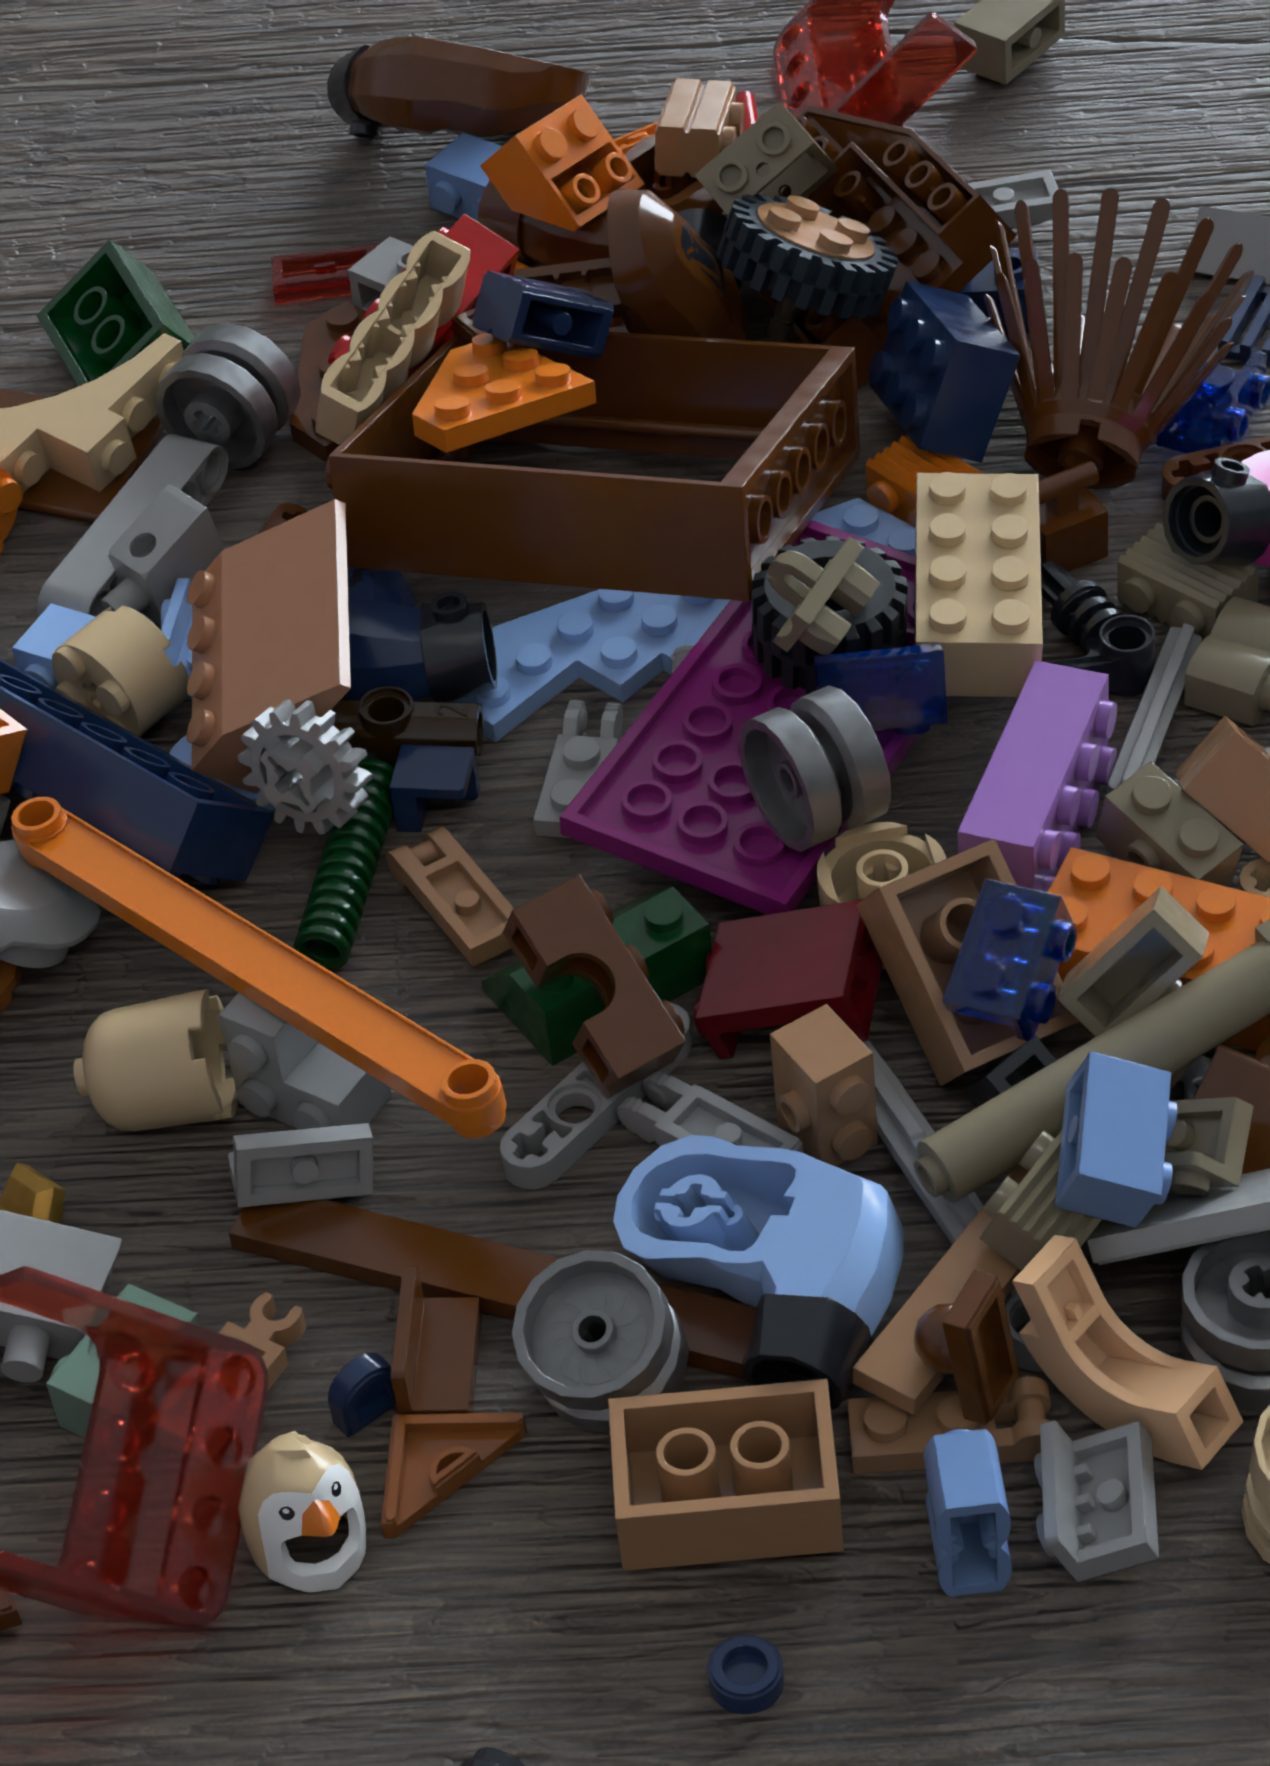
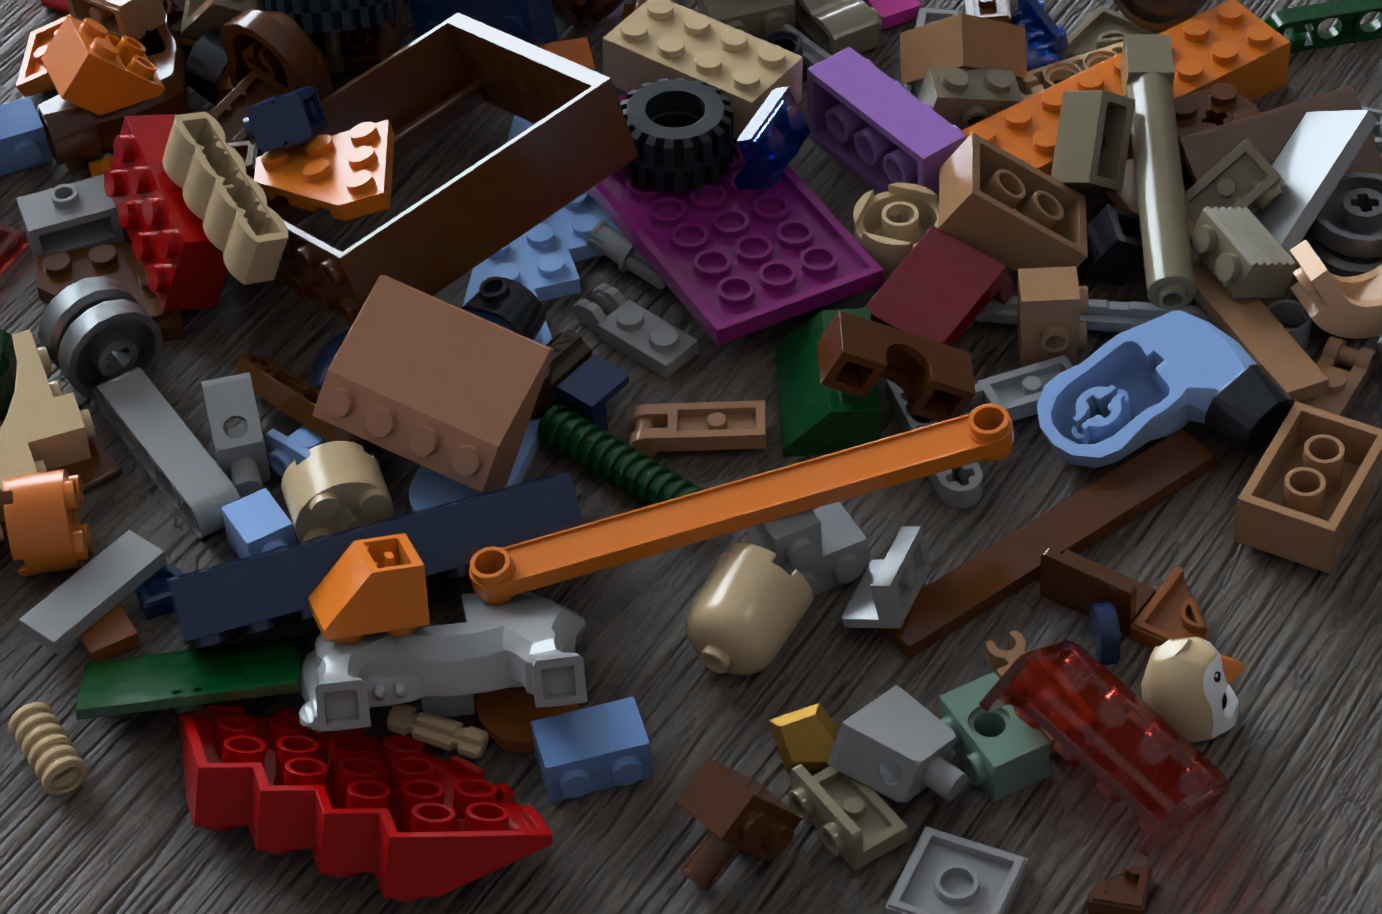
camera: 60 degrees left, 0 degrees up
(304, 766) = (566, 420): light grey gear -> none
(597, 1333) = (1173, 493): flat silver wheel -> none
(815, 768) = (821, 187): flat silver wheel -> none
(839, 579) = (708, 94): dark tan hips -> none
(973, 1344) = (1326, 327): reddish brown tile -> none
(1011, 957) = (1051, 178): clear blue bracket -> none
(1115, 1140) = (1244, 193): medium blue brick -> none

